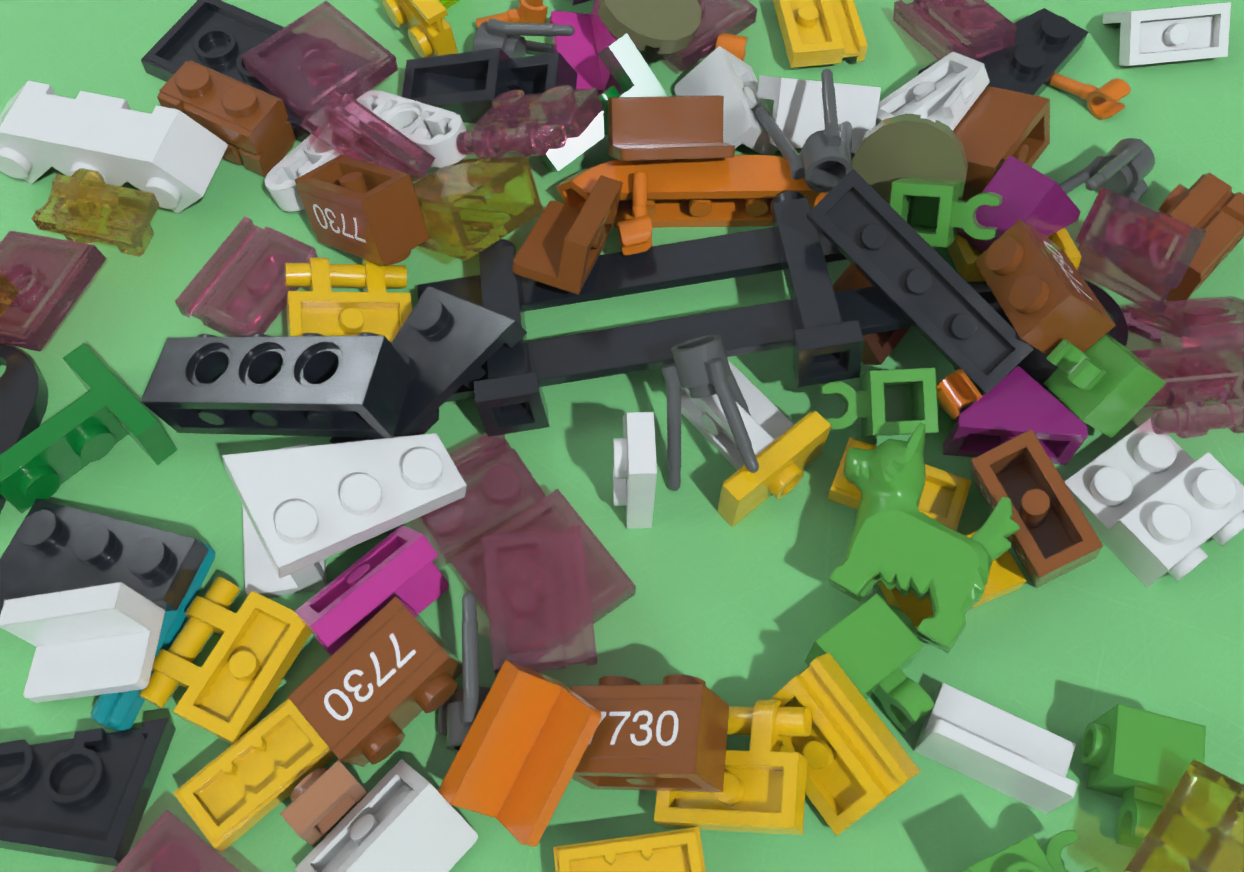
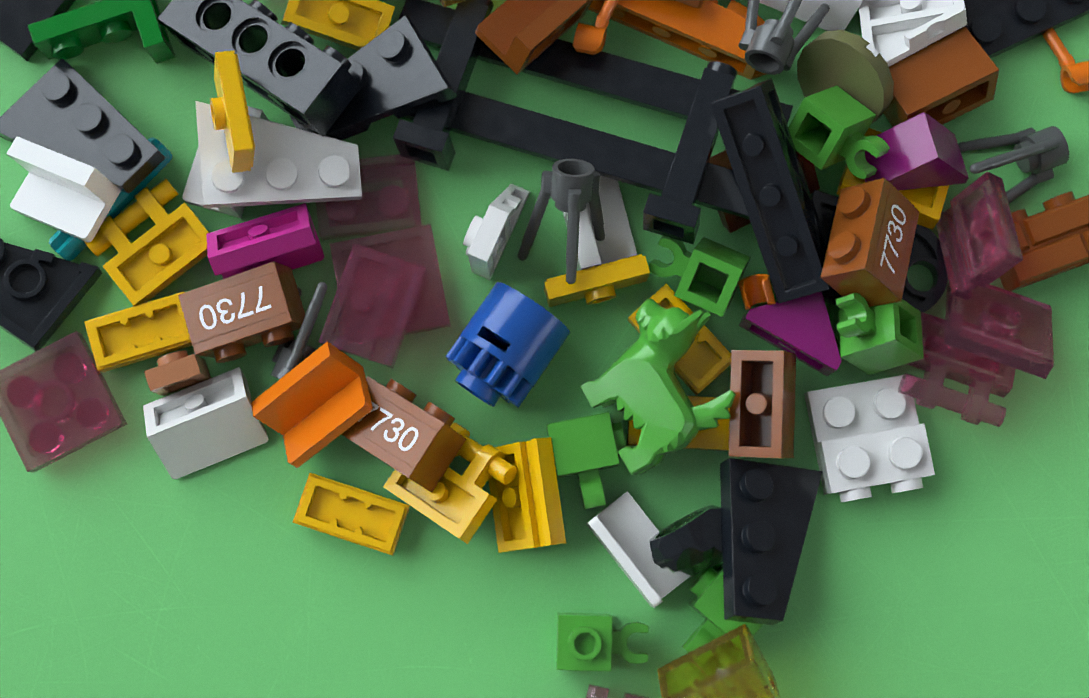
camera: 25 degrees right, 20 degrees up
(275, 440) = (231, 112): none -> yellow plate
(718, 575) = (506, 346): none -> blue gear
(1061, 696) = (690, 542): none -> black rock
(1136, 655) = (762, 535): none -> black wing

